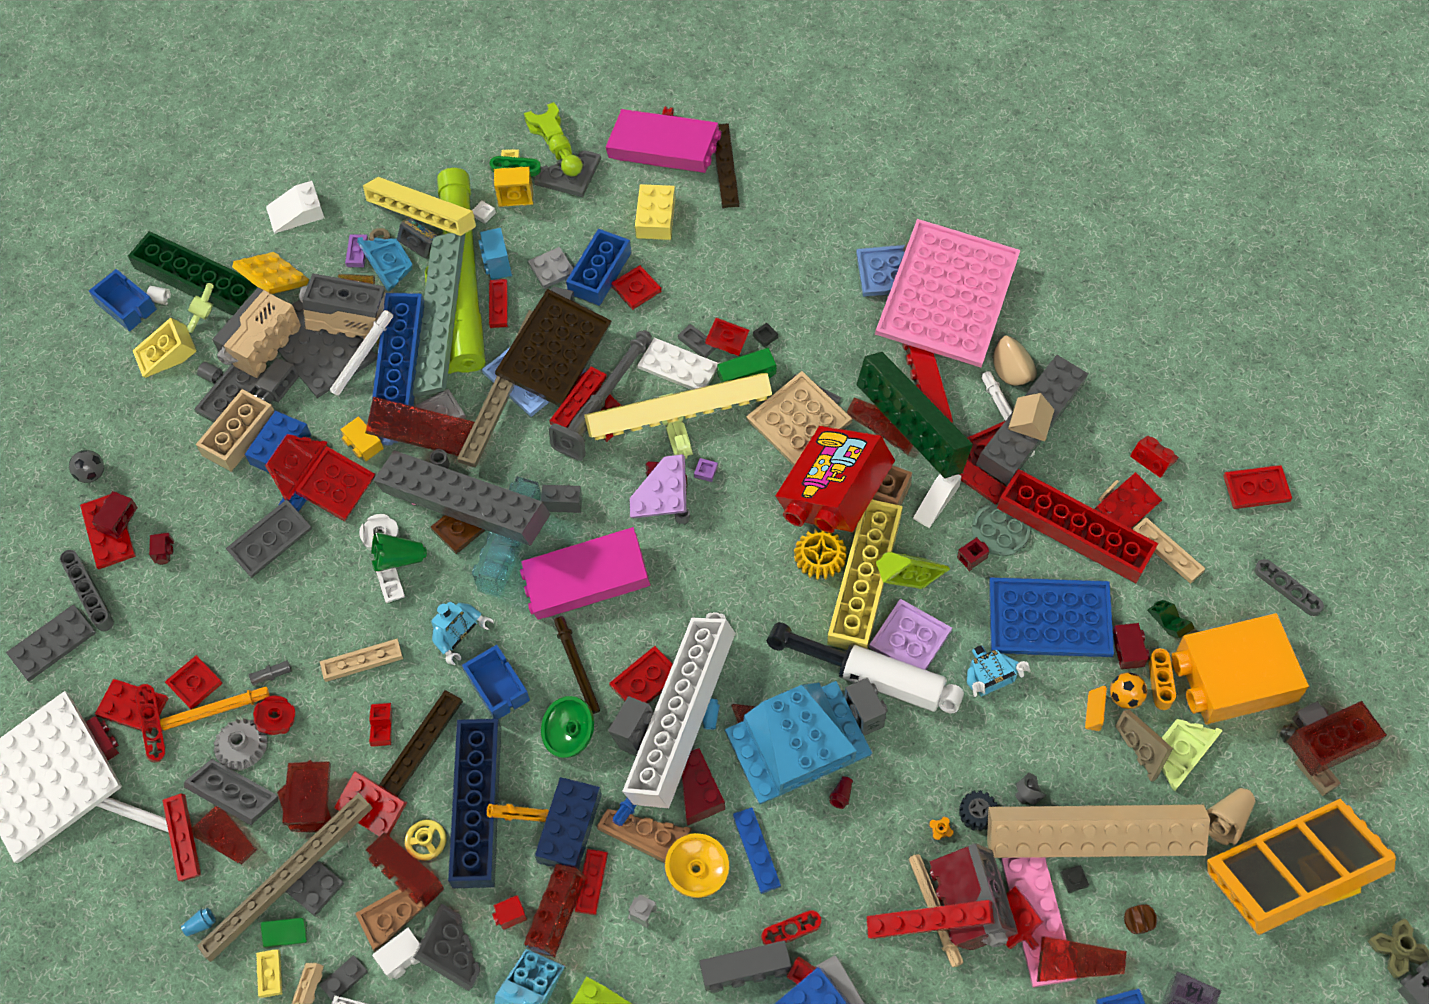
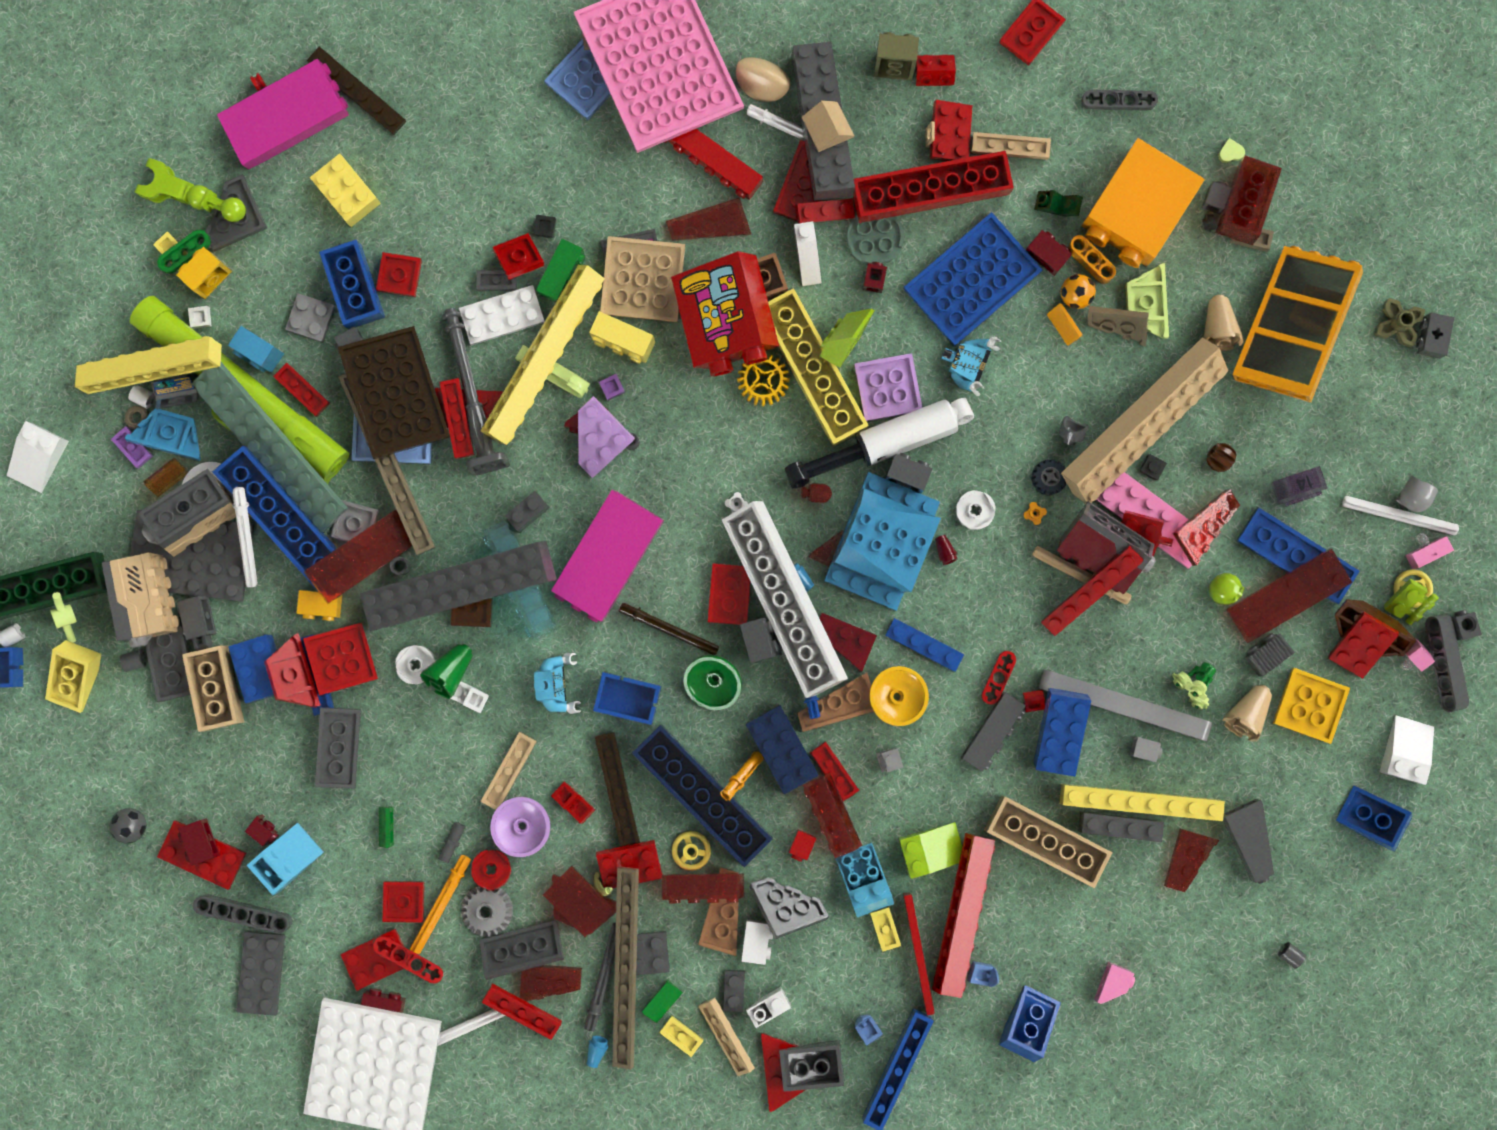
camera: 40 degrees left, 25 degrees up
(152, 579) = (285, 859): none -> medium azure slope
(241, 622) = (386, 831): none -> green slope
(251, 878) = (596, 1004): none -> dark grey axle
(270, 273) = (86, 534): yellow plate -> none
(318, 694) = (506, 828): none -> lavender dish
(332, 805) = (599, 887): none -> yellowish green piece
(393, 225) = (141, 396): none -> white beam
(745, 441) = (622, 338): none -> light yellow brick
(782, 665) = (817, 493): none -> clear red arm
(896, 795) = (977, 499): none -> white plate
(914, 415) = (733, 201): dark green brick -> none
(1128, 416) = (896, 56): none -> olive brick
(1353, 695) = (1231, 151): none -> yellowish green tile

